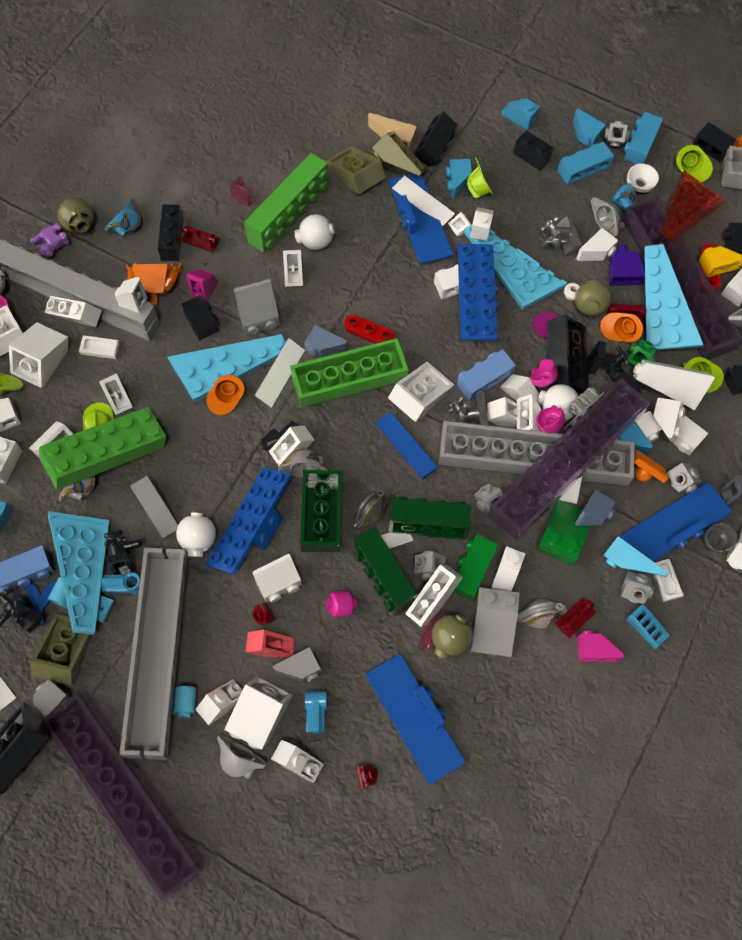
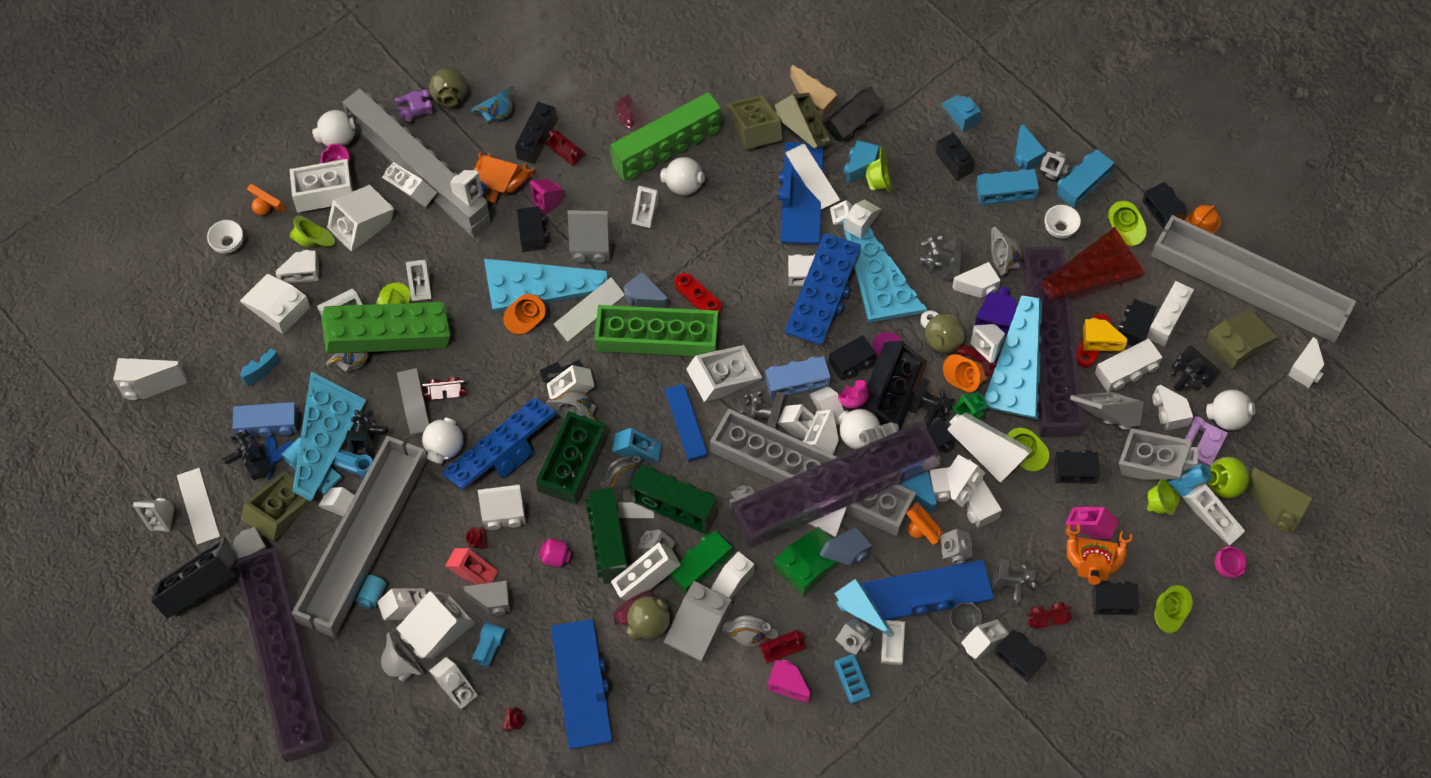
camera: 25 degrees right, 5 degrees down
(99, 347) = (421, 228): white tile -> none
(119, 624) = (337, 500): none -> white slope
(185, 482) = (436, 388): none -> hinge
(372, 479) = (634, 443): none -> dark azure slope
(524, 343) = (852, 358): none -> black brick
(551, 419) = (837, 441): dark pink hair -> none
(624, 196) = (1031, 236): dark azure hat -> none
(631, 293) = (988, 340): none -> white slope

